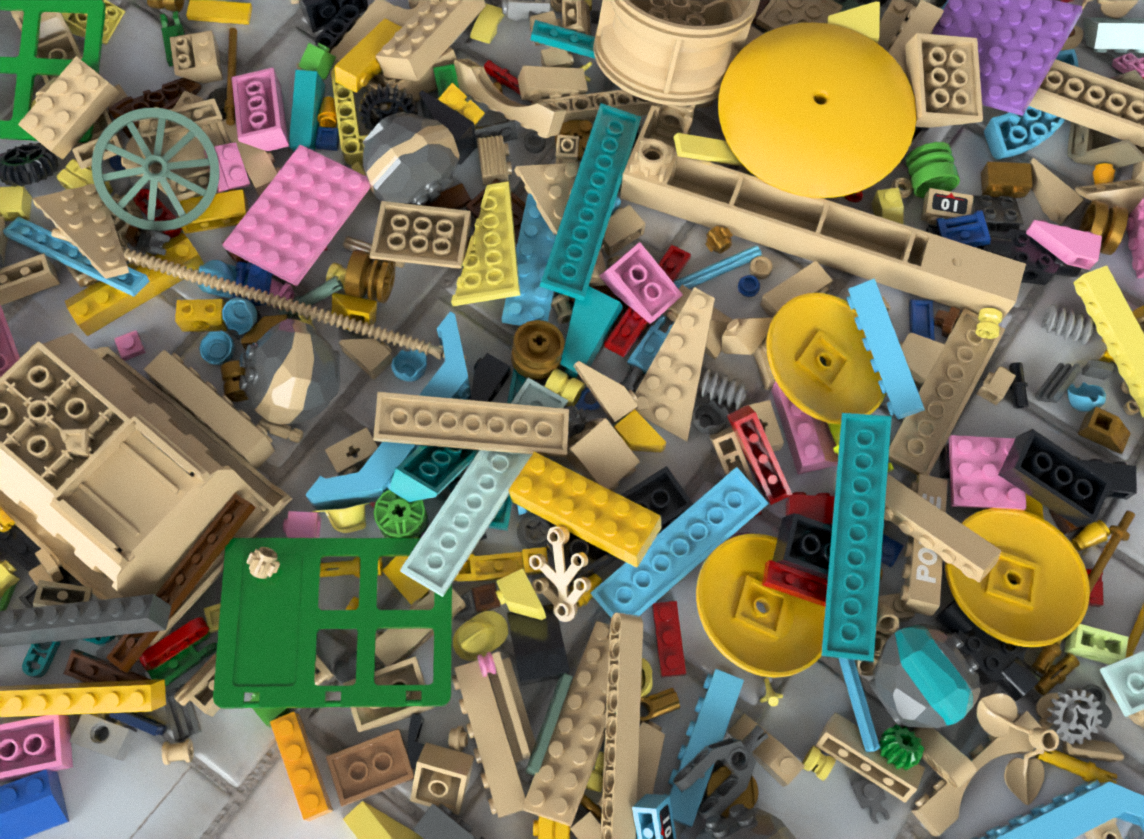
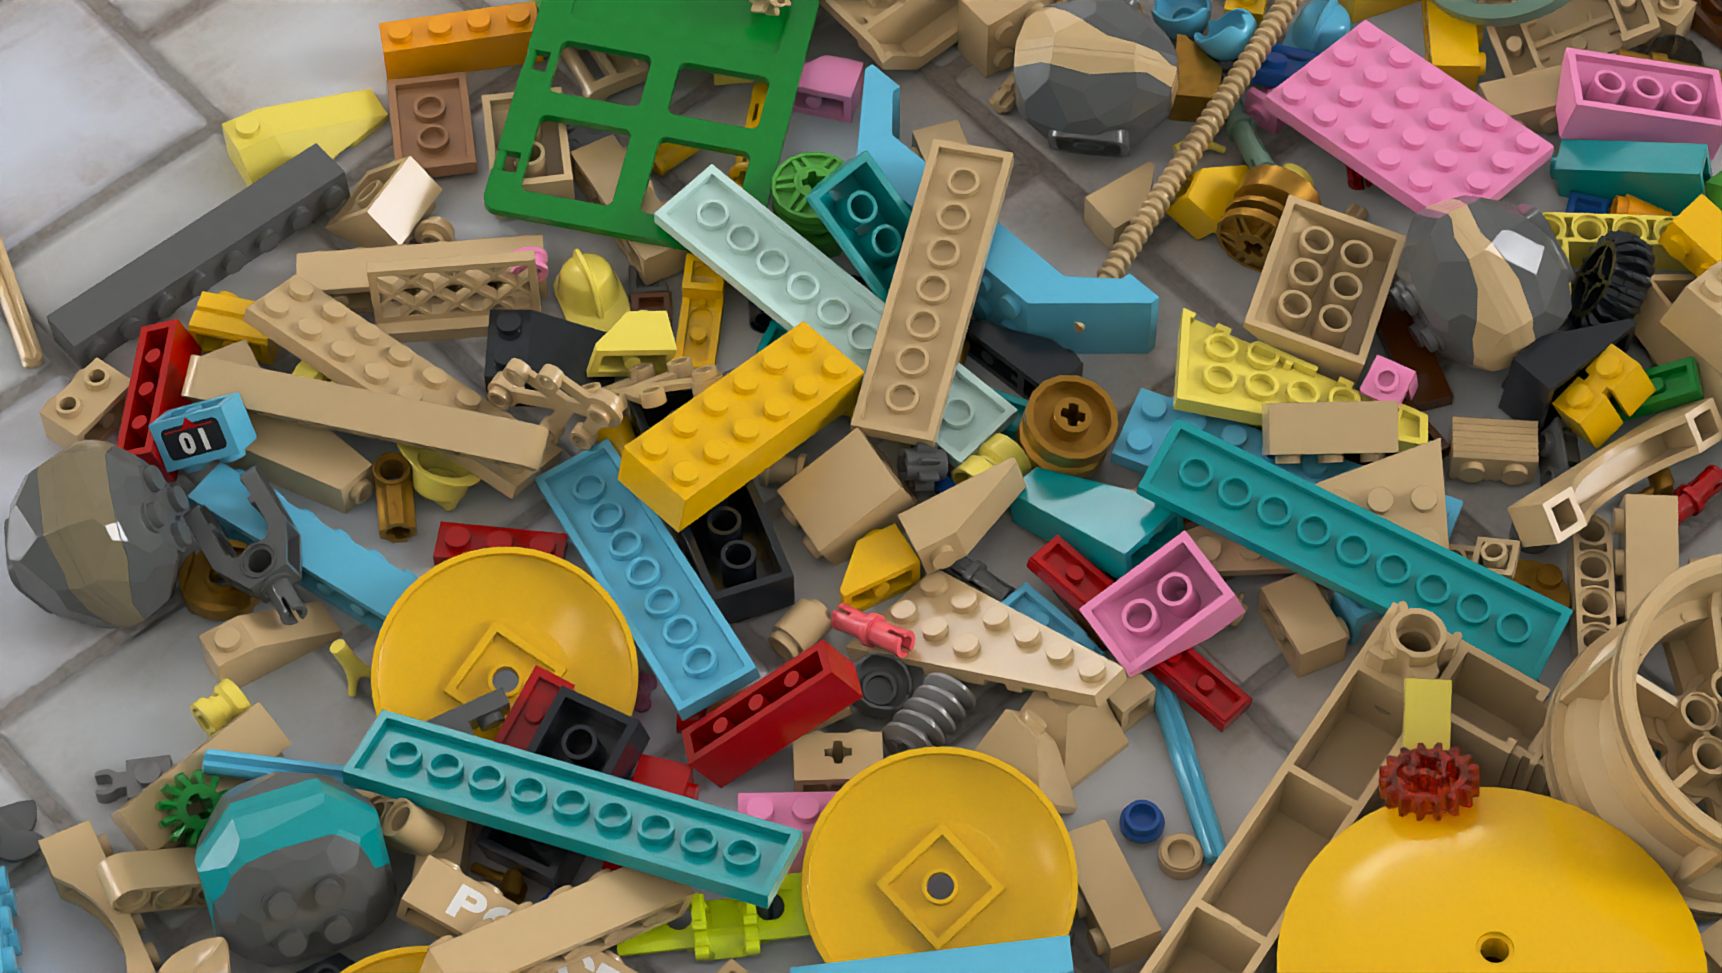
camera: 105 degrees right, 15 degrees down
(231, 168) = (1524, 46): bright pink plate -> none
(347, 519) = (840, 131): light yellow piece -> none
(409, 365) = (1084, 253): medium azure hair -> none
(414, 747) = (457, 180): black slope -> none
(475, 200) = (1389, 381): none -> bright pink bracket
(519, 218) = (1330, 430): none -> tan brick
(548, 724) = (417, 342): sand green tile -> none
(596, 585) = (601, 407): none -> tan plant
(680, 425) = (873, 630): none -> coral pin
(683, 465) = (800, 628): none -> tan brick
(719, 239) = (1246, 782): pearl gold gear -> none
(733, 127) = (1429, 781): none -> clear red gear
(806, 617) = (481, 712): none -> dark grey slope

